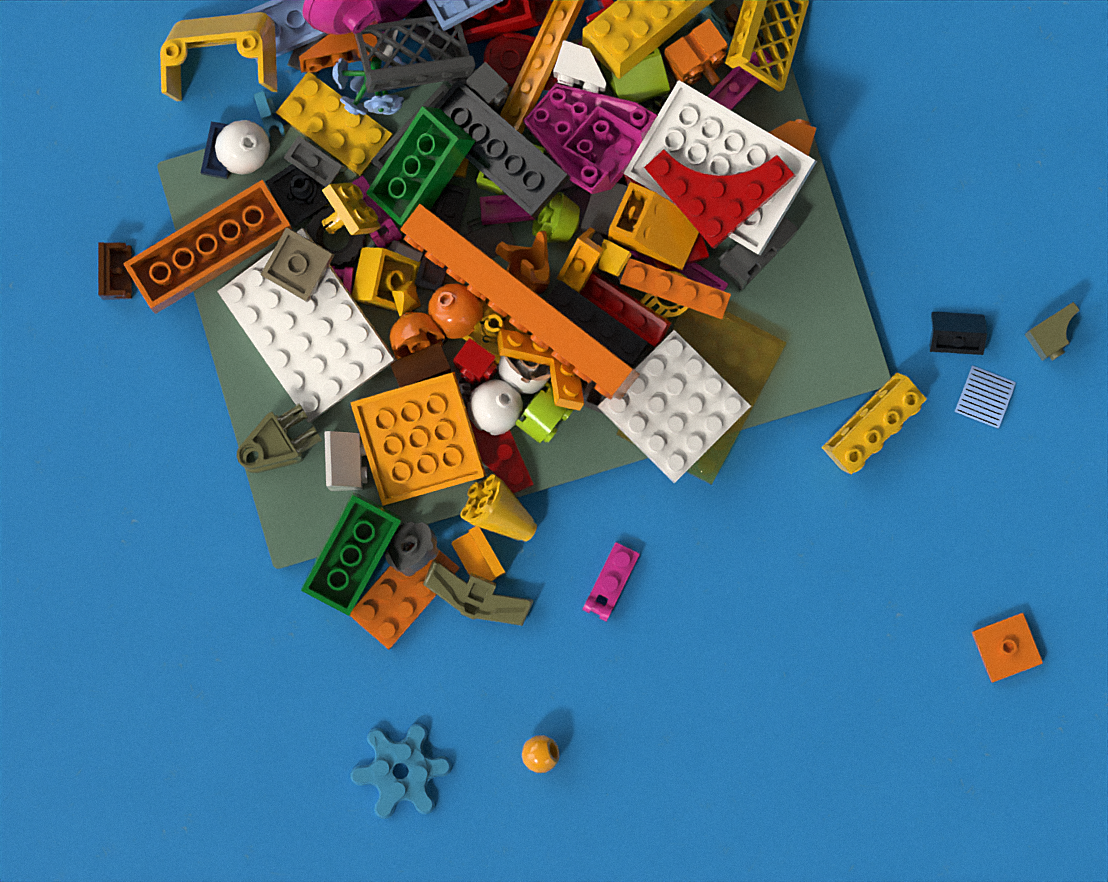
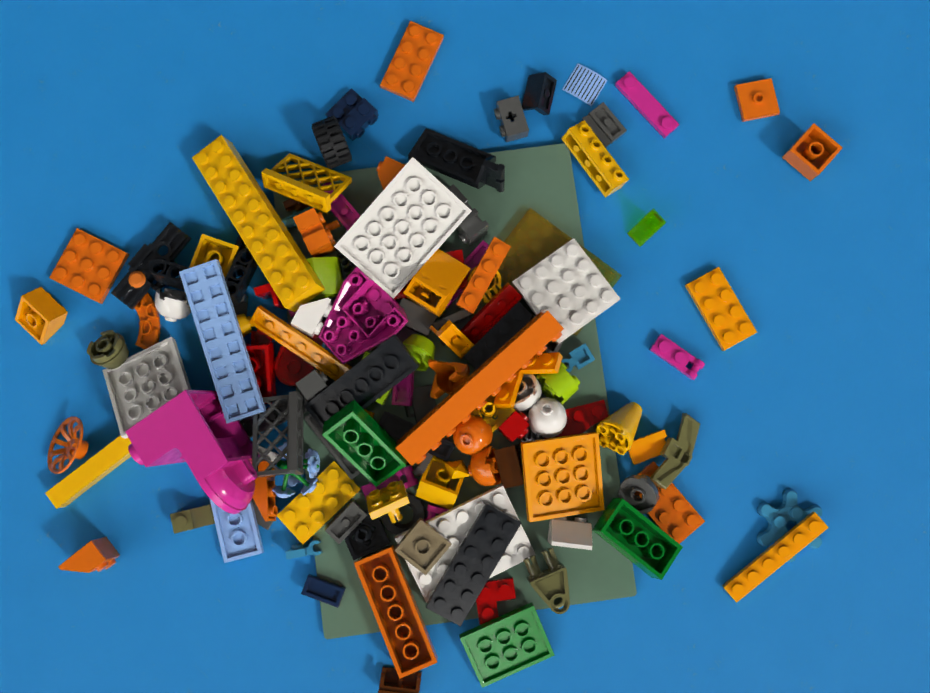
camera: 85 degrees left, 0 degrees up
(184, 402) = (506, 644): none -> green plate
(242, 147) = (324, 573): white cylinder -> none
(243, 367) = (494, 591): none -> red plate
(250, 31) = (242, 553): yellow windscreen -> none
(284, 337) = (473, 564): none -> black plate
(355, 750) = (775, 556): none -> light orange plate
(540, 754) = (793, 425): light orange piece -> none
(585, 442) = (579, 357): none -> dark azure plate
(613, 258) = (455, 314): yellow slope -> none
(690, 634) = (720, 309): none -> light orange plate
(716, 202) = (429, 232): red plate -> none
(786, 511) = (646, 227): none -> clear neon green slope
(829, 54) = (331, 142): none -> black tyre
(836, 229) = (458, 160): none -> black hinge
(879, 77) = (353, 114): none -> dark blue plate
(927, 431) = (604, 124): none -> dark grey plate
(928, 297) = (511, 109): none -> dark grey brick
(938, 732) = (812, 152): none -> orange brick
(970, 489) = (646, 104): none -> dark pink plate
(973, 147) = (412, 61): none -> orange plate
(1050, 335) = (551, 32): olive arch -> none

